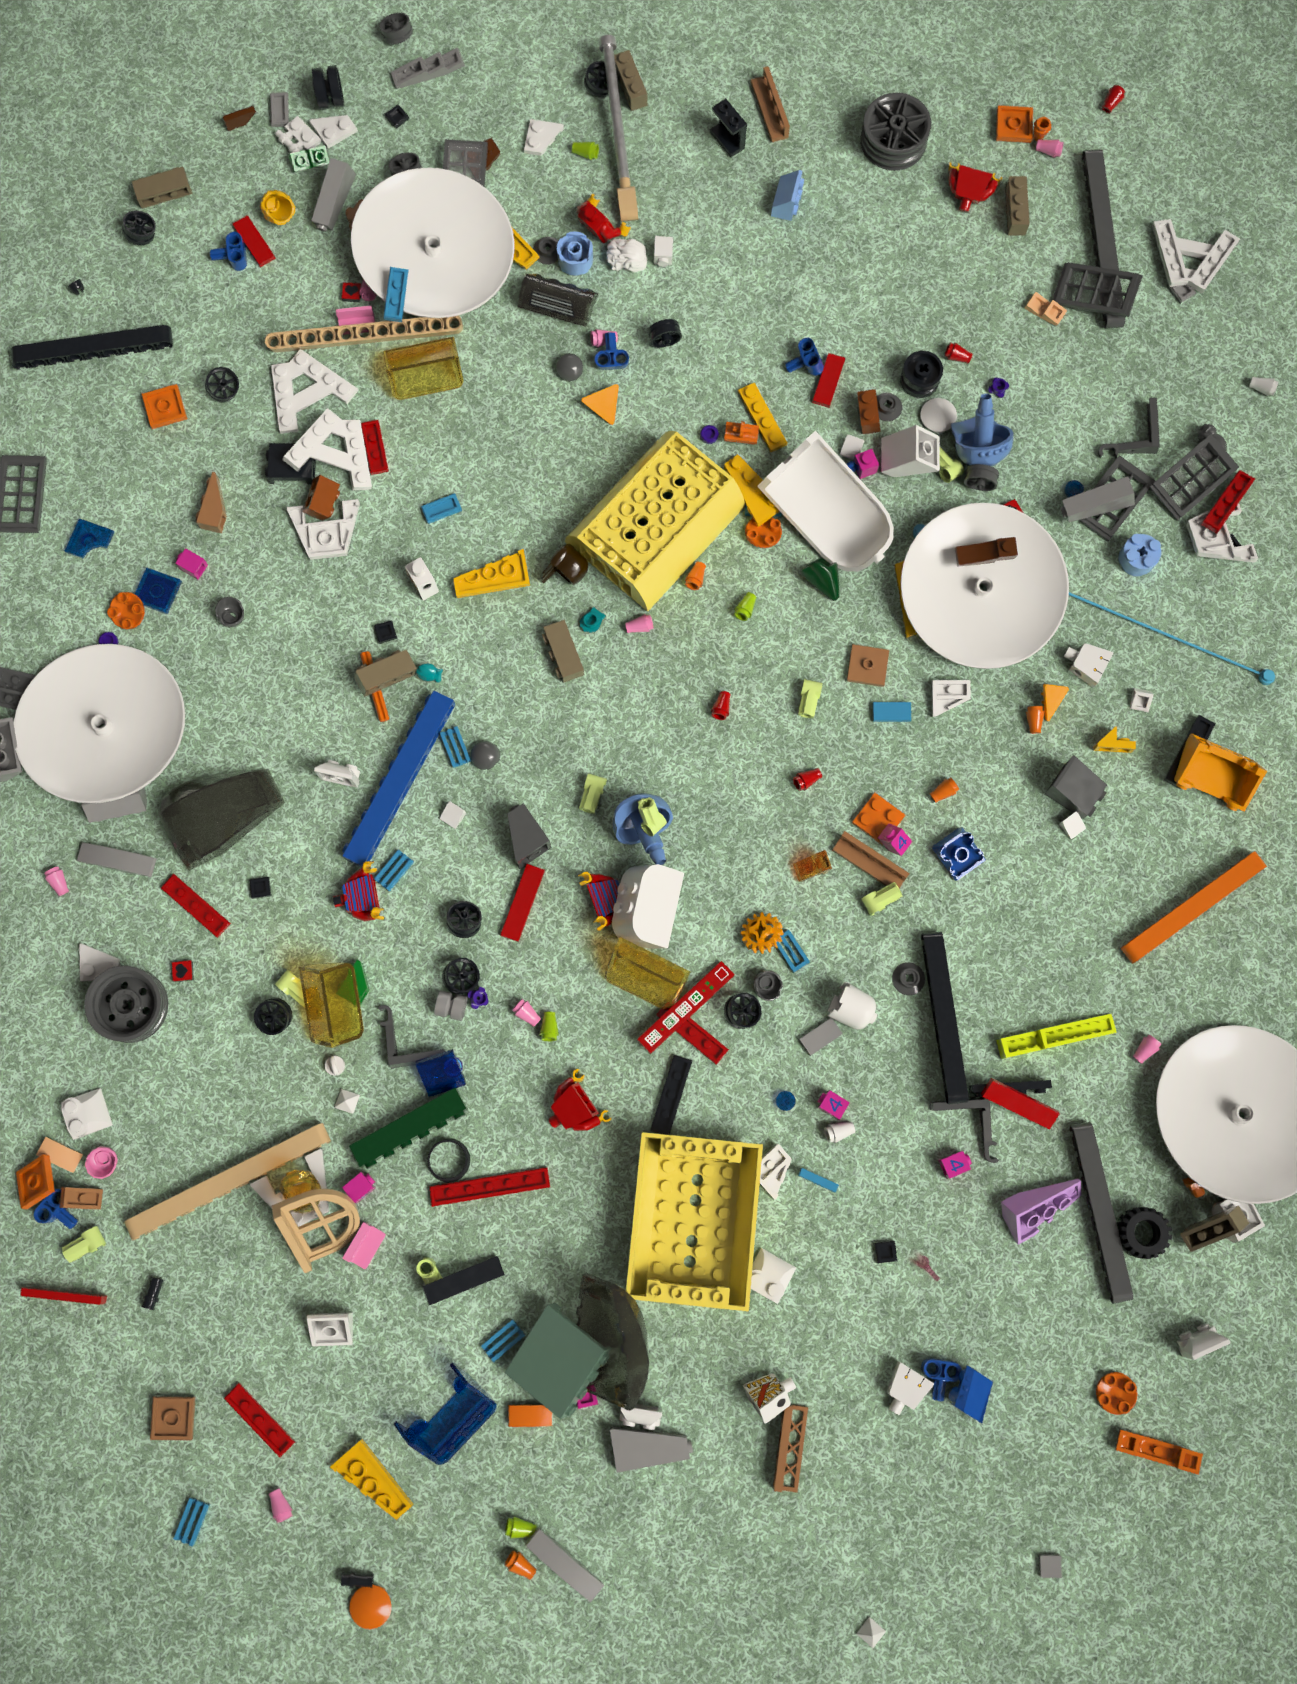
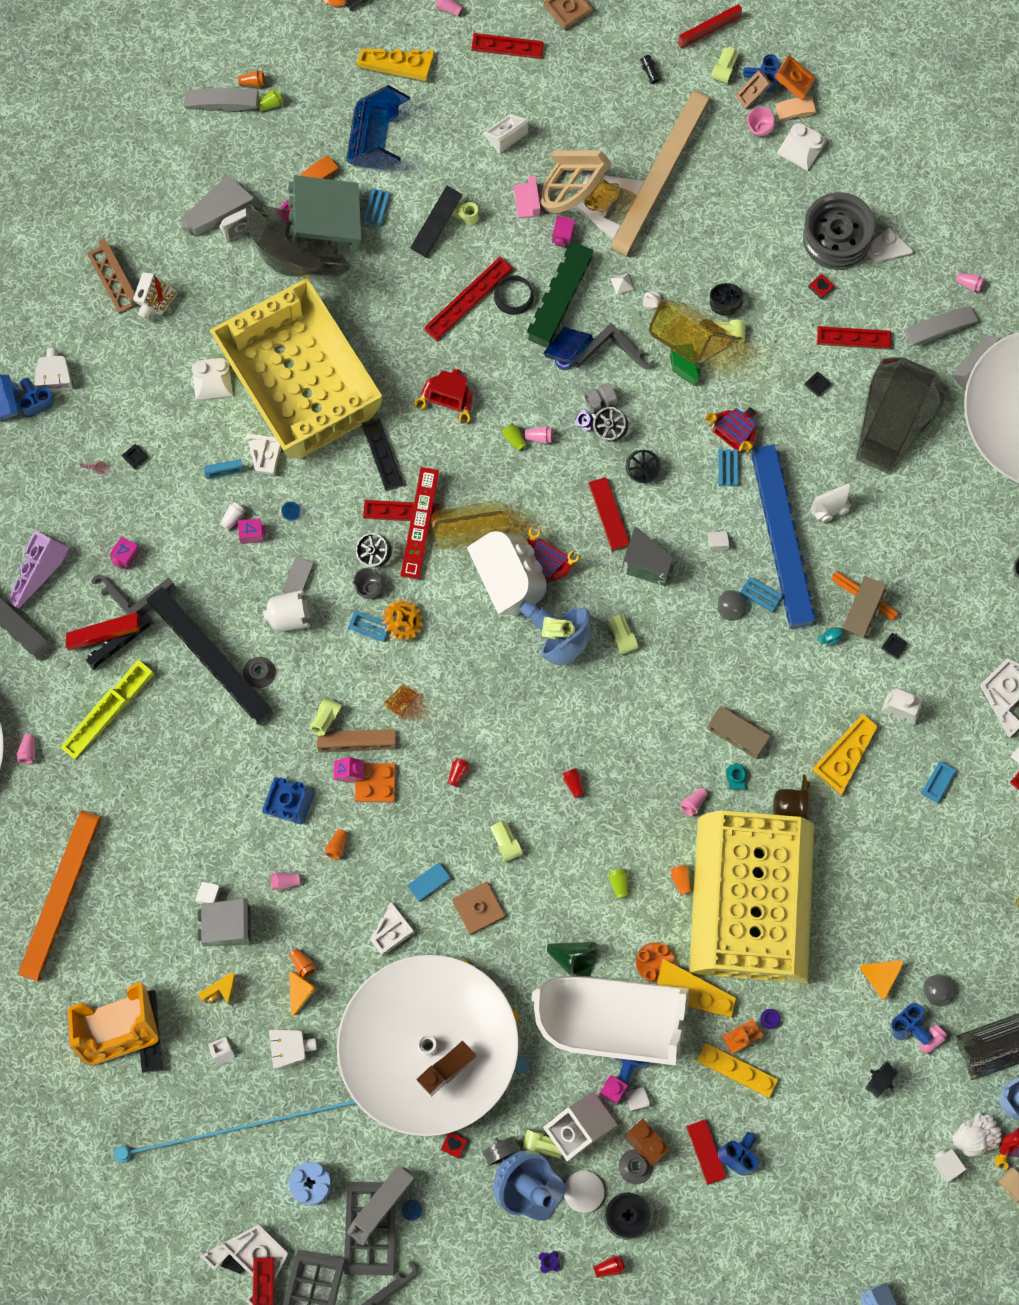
camera: 140 degrees right, 5 degrees down
(1006, 792) = (282, 881): none -> bright pink cone

